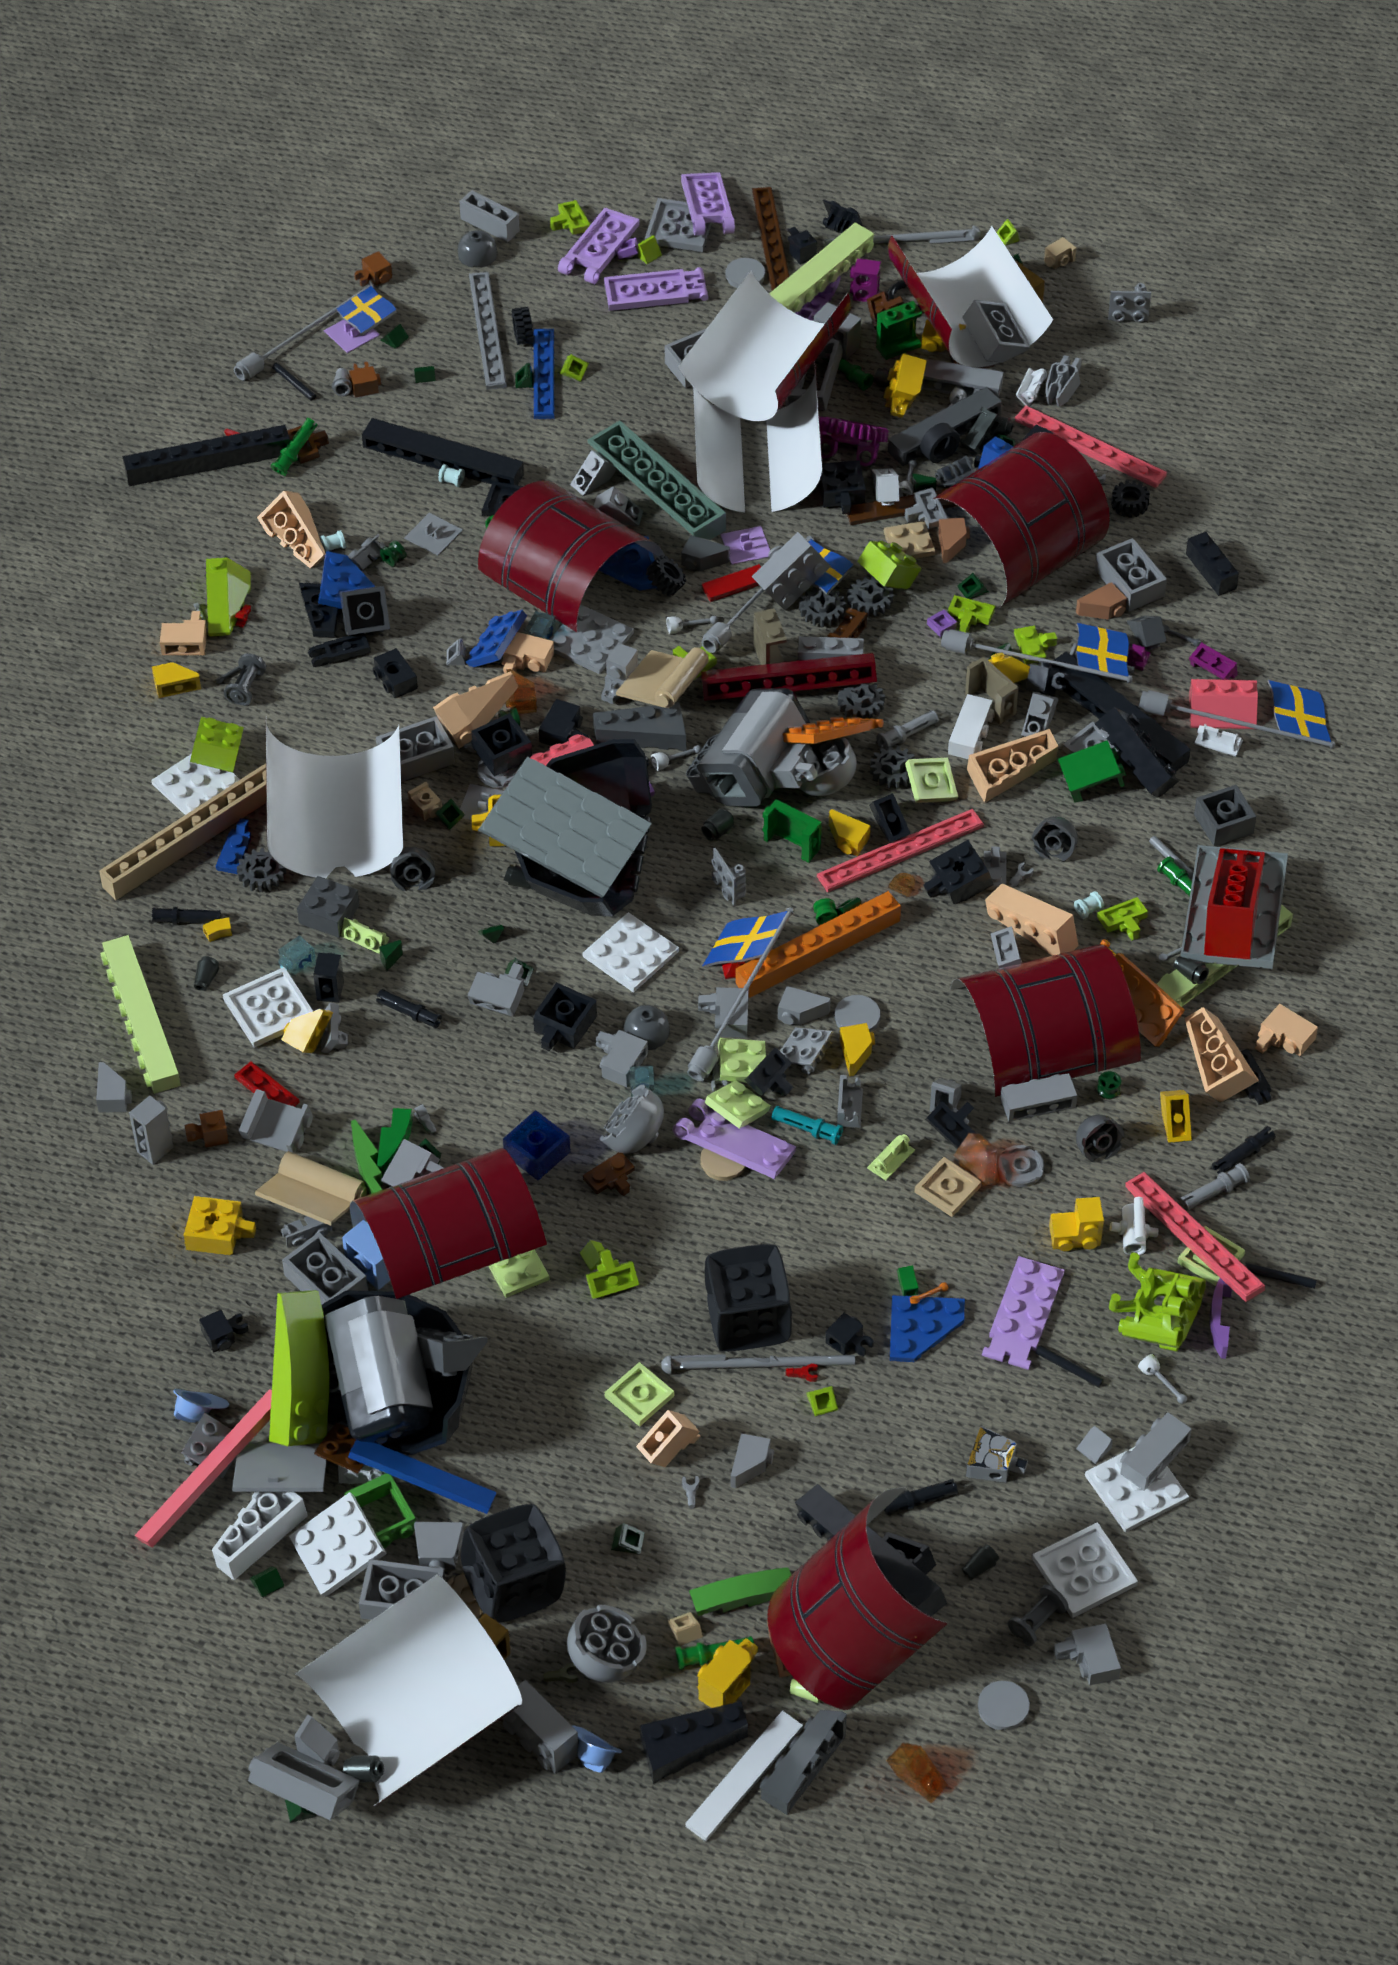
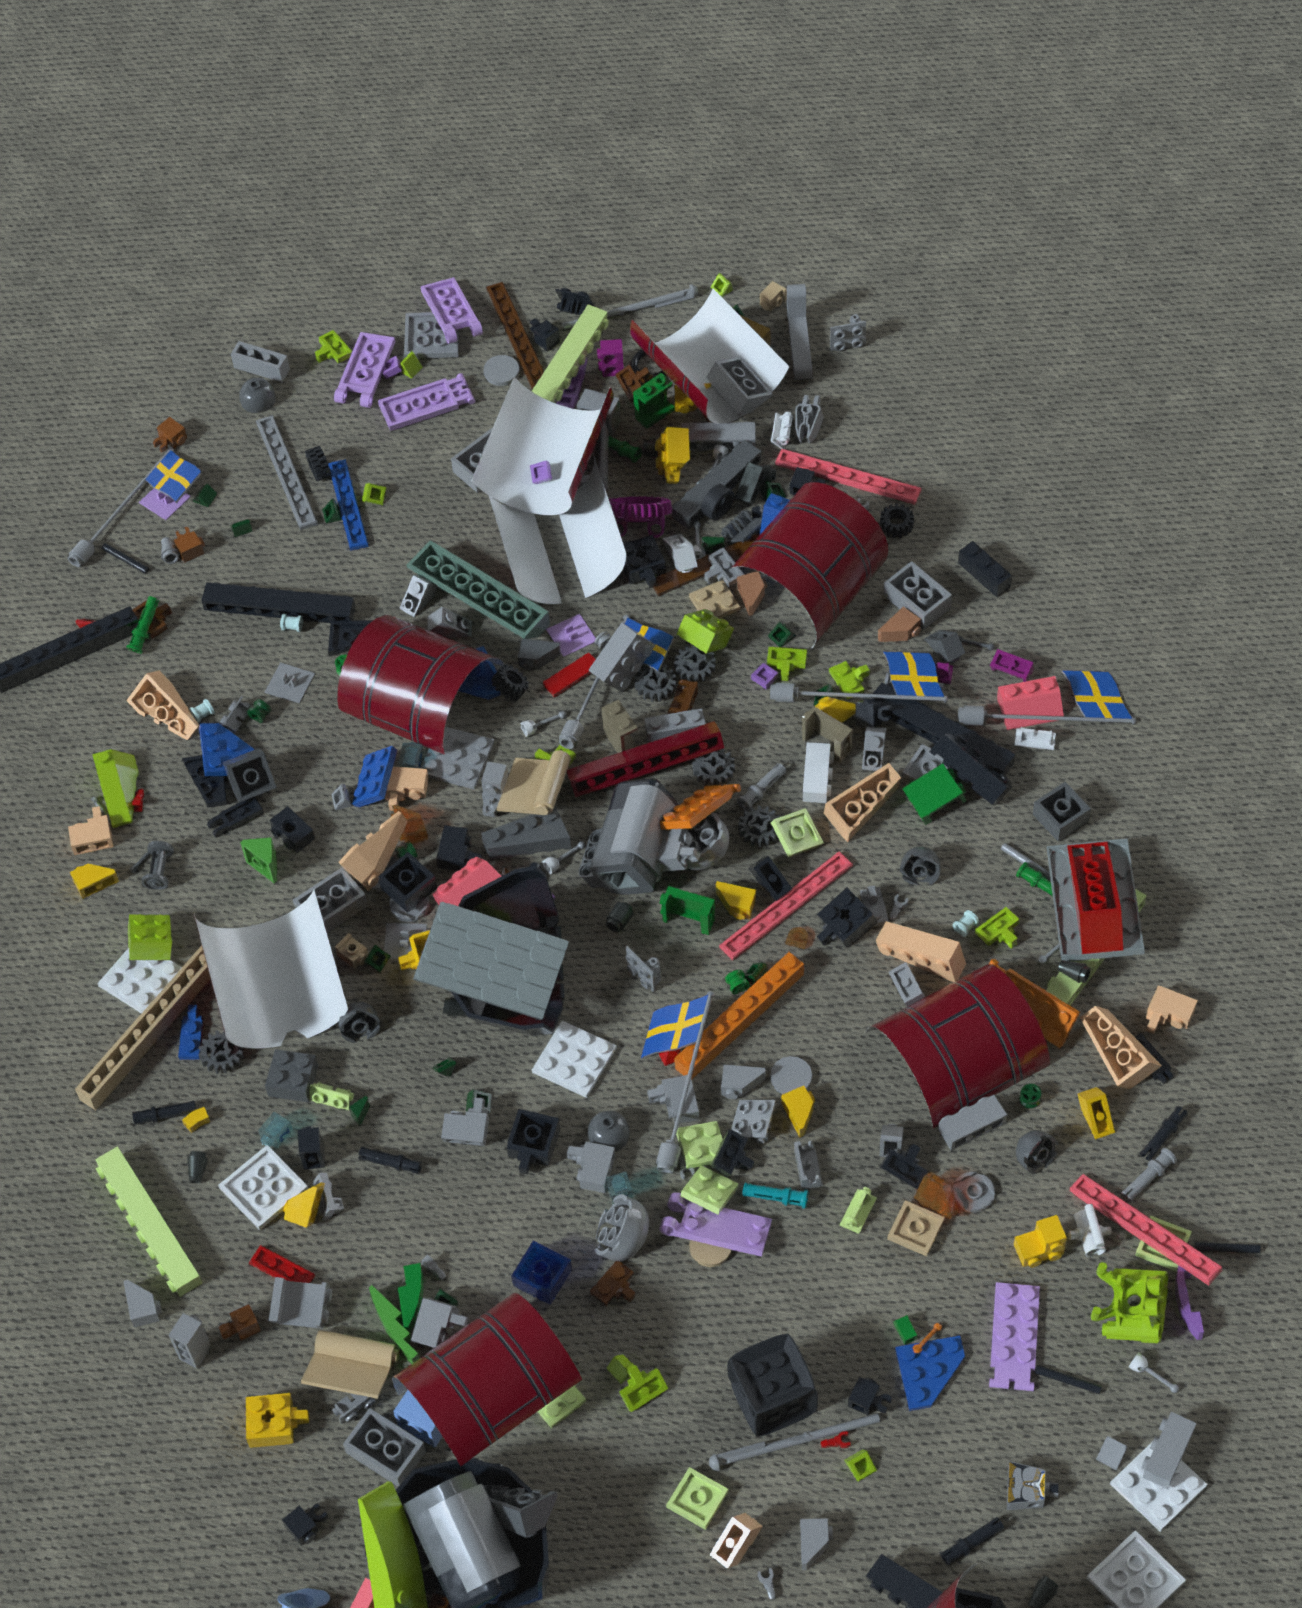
camera: 10 degrees left, 5 degrees up
(355, 690) = (261, 856): none -> bright green slope
(756, 375) = (541, 472): none -> medium lavender plate
(1077, 291) = (799, 332): none -> light grey beam

